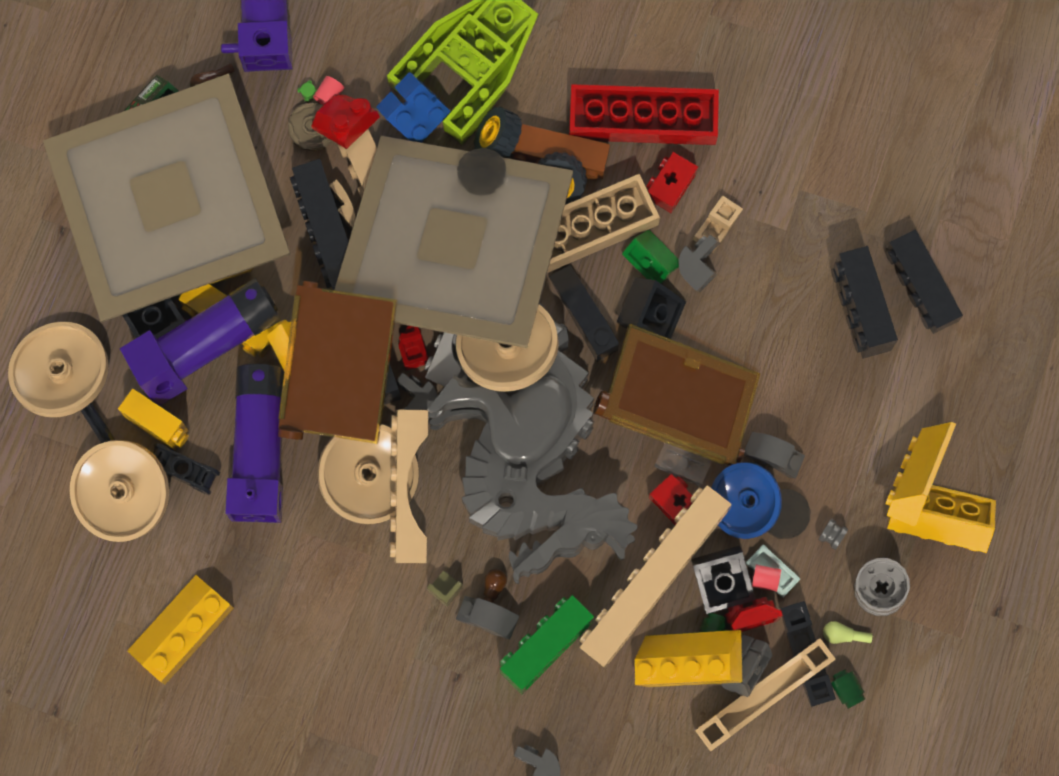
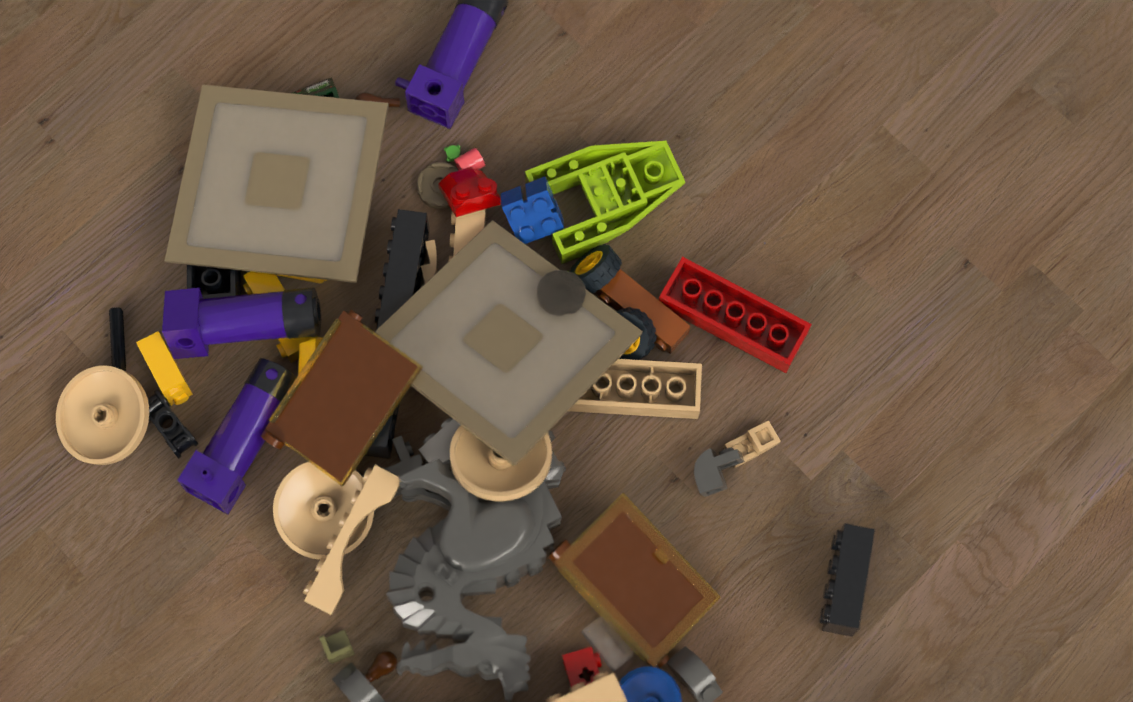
camera: 25 degrees right, 5 degrees down
(58, 369) = (109, 285): tan dish -> none
(180, 629) = (88, 564): yellow slope -> none
(412, 348) = (422, 419): red slope -> none
(584, 313) = (590, 464): black slope -> none
(651, 257) = (676, 444): green panel -> none
(651, 308) = (652, 489): black slope -> none
(681, 171) = (723, 397): red brick -> none
(923, 281) = (912, 589): black brick -> none

